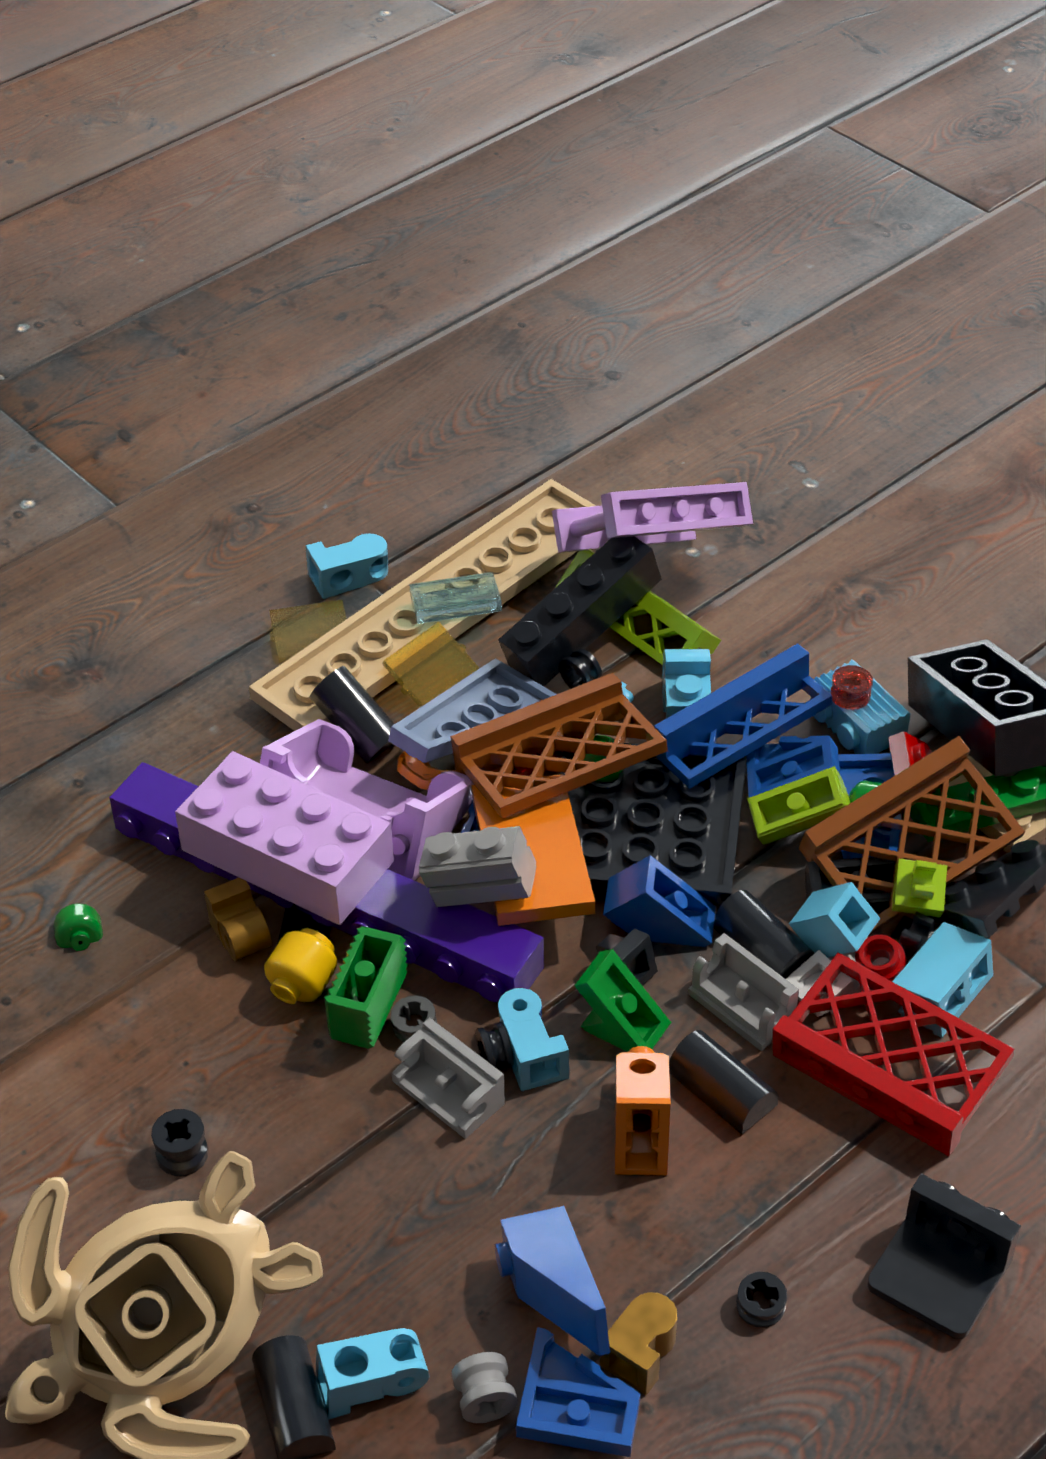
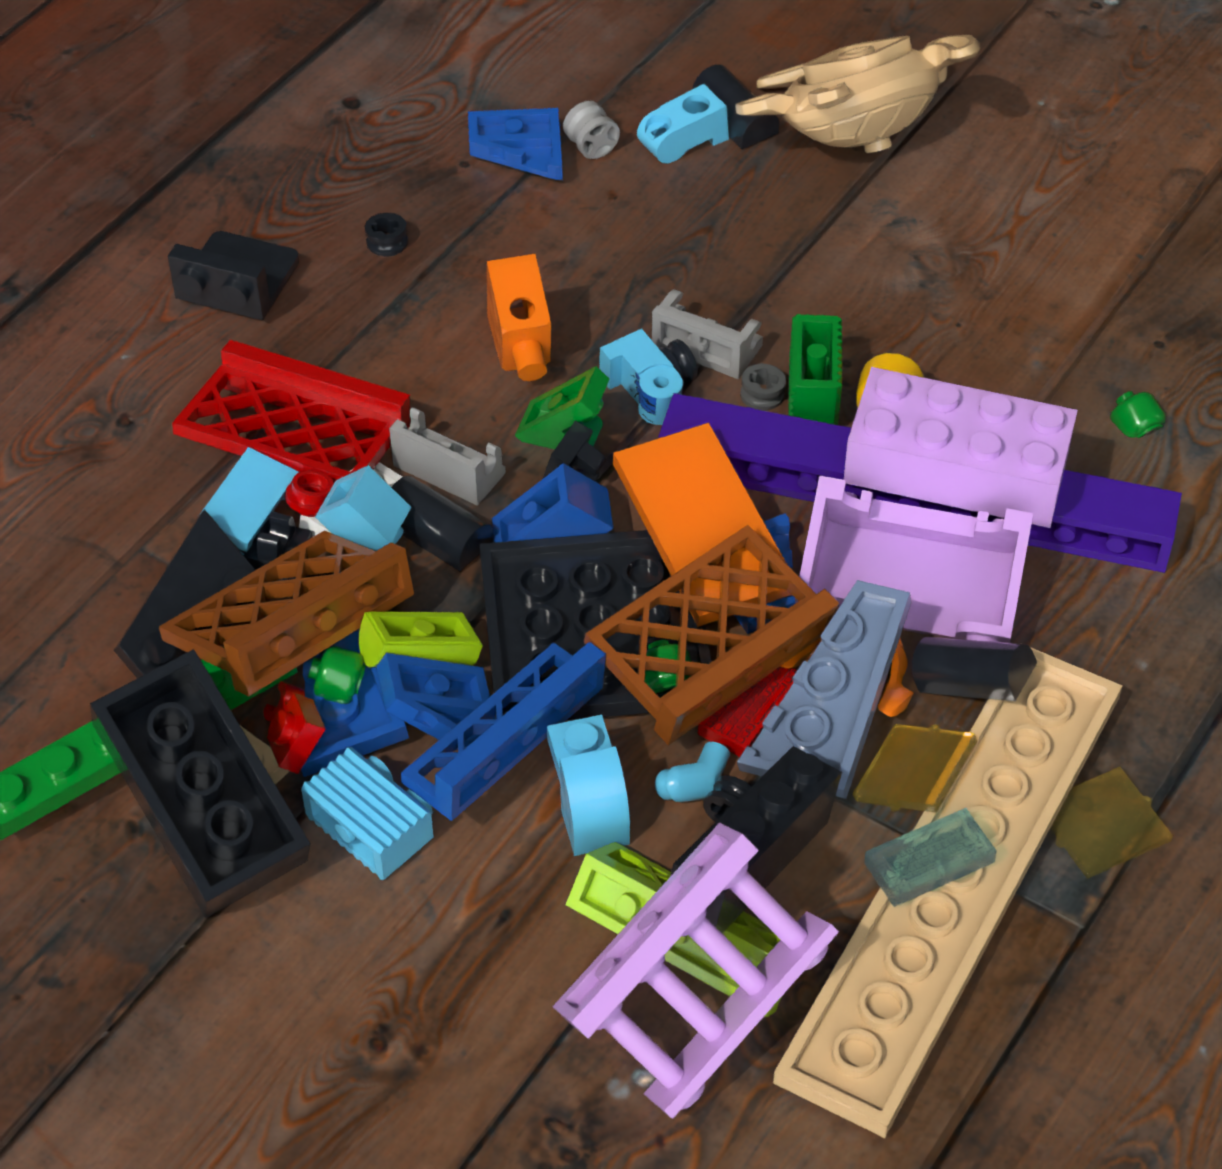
camera: 165 degrees right, 5 degrees up
(181, 1155) = (920, 243): black wheel -> none
(347, 564) = (1105, 909): medium azure leg -> none
(477, 866) = (741, 433): light grey brick -> none
(553, 1274) = (558, 184): slope -> none
(639, 1340) = (478, 179): pearl gold leg -> none
(721, 1081) = (450, 383): black brick -> none
(853, 677) = (379, 767): clear red bush -> none
(919, 887) = (274, 550): lime tile -> none

